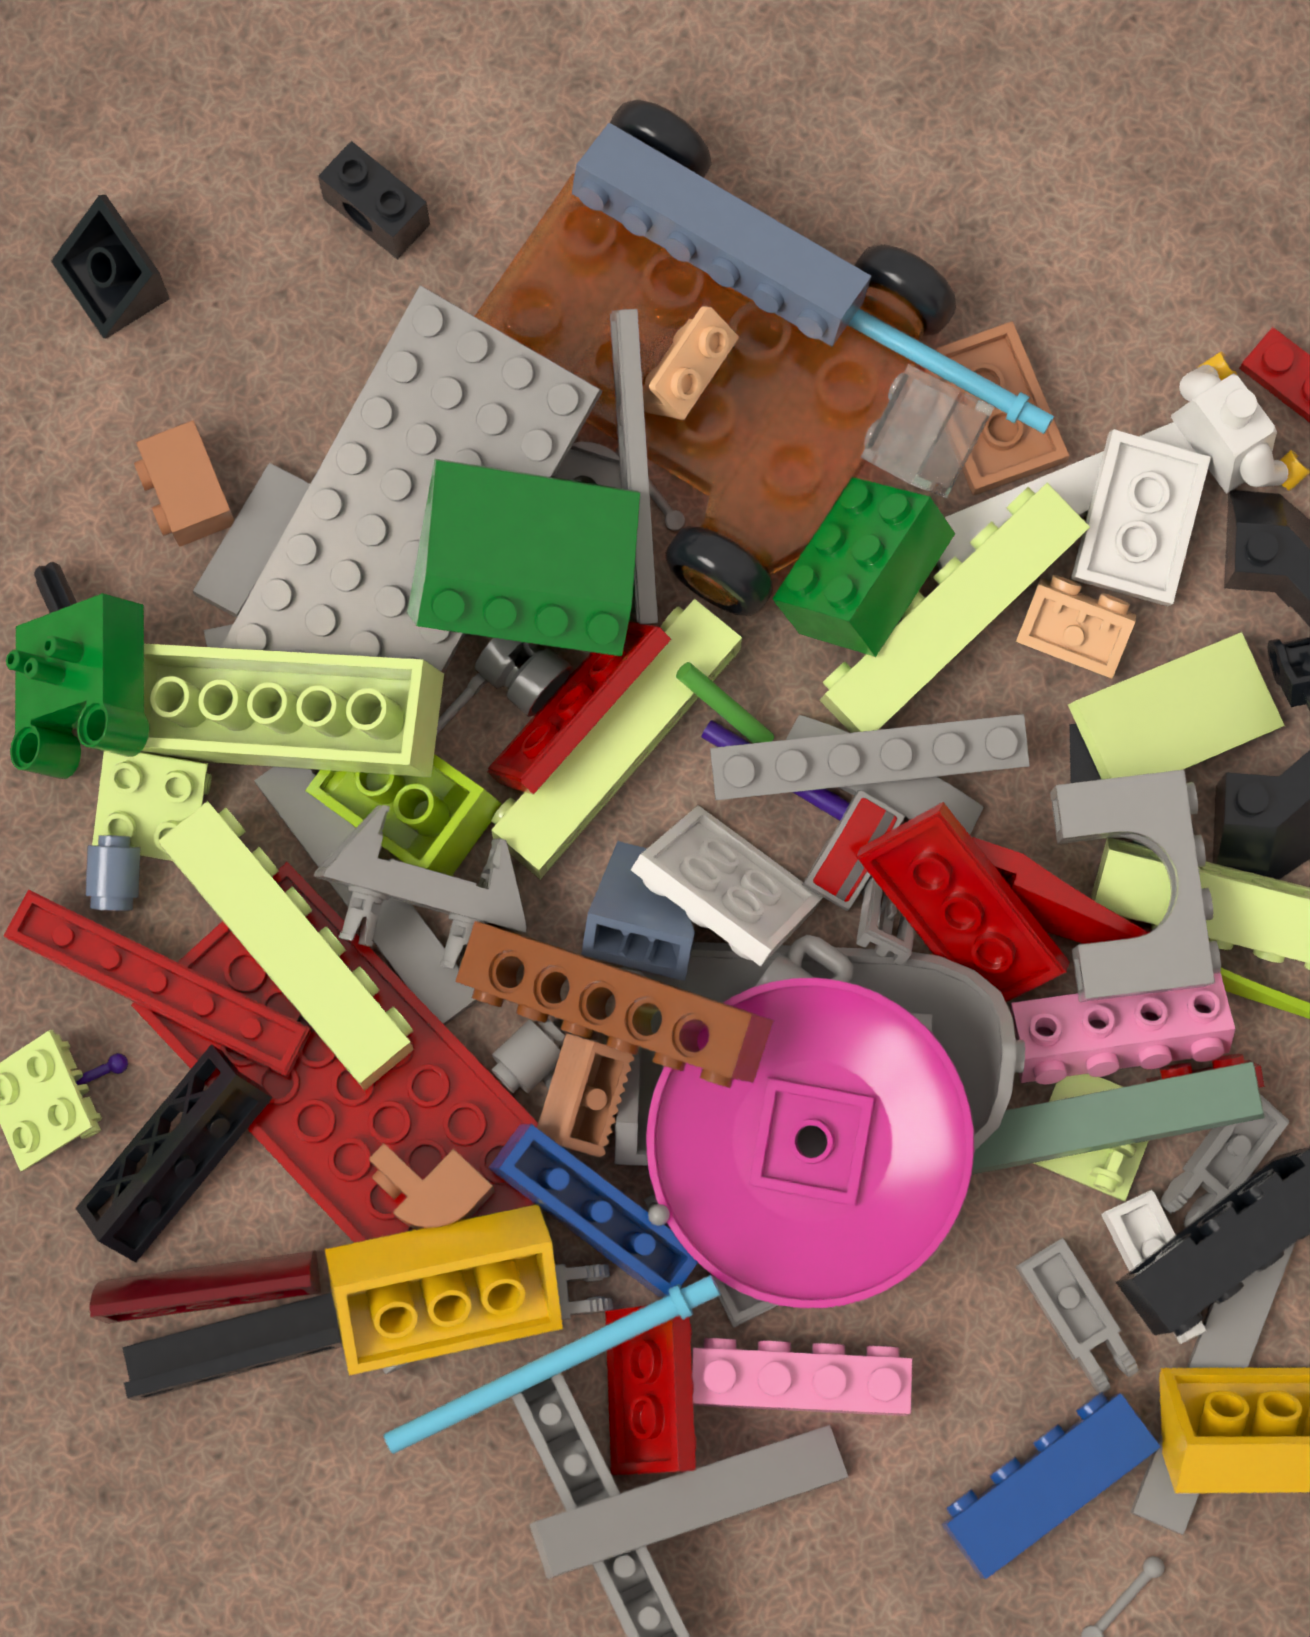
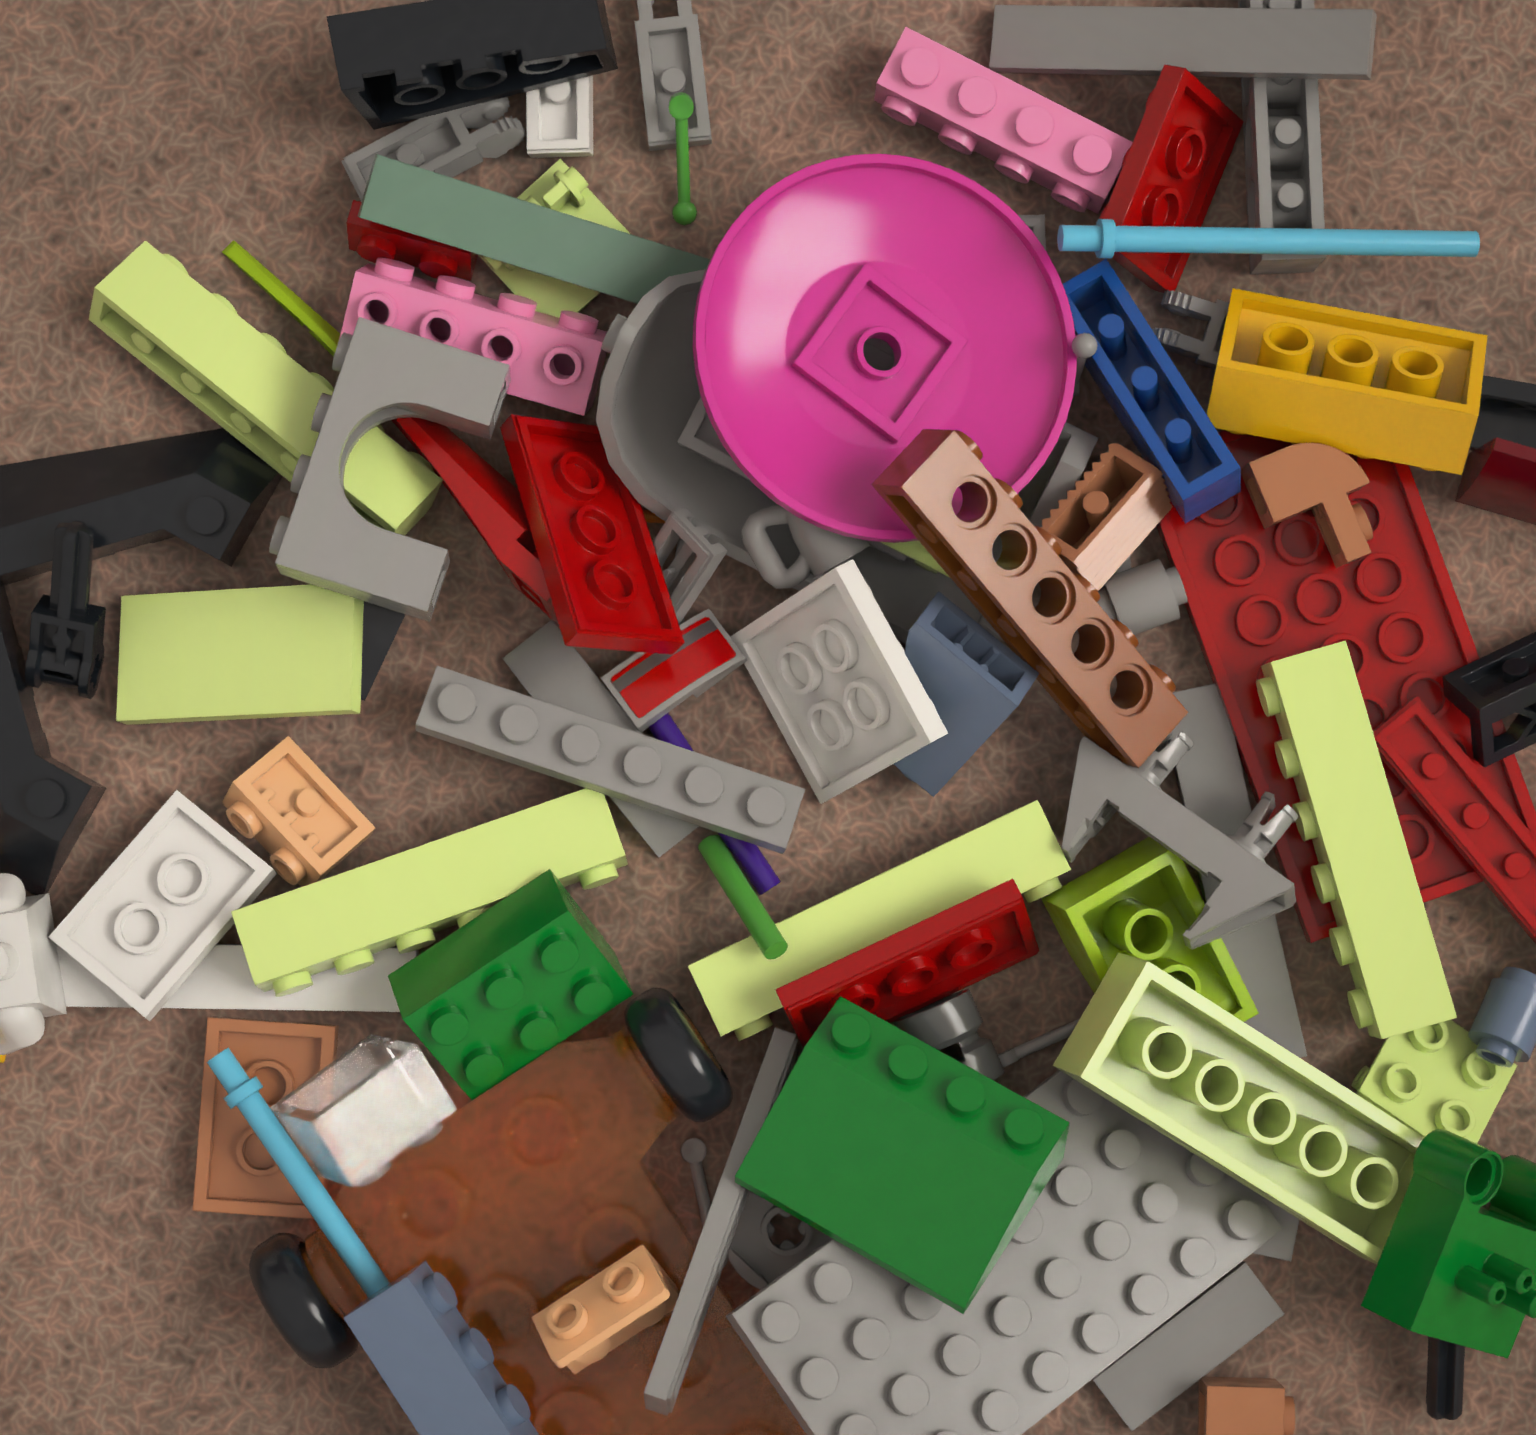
camera: 155 degrees left, 10 degrees up
(1052, 1272) = (681, 108): none -> bright green hinge

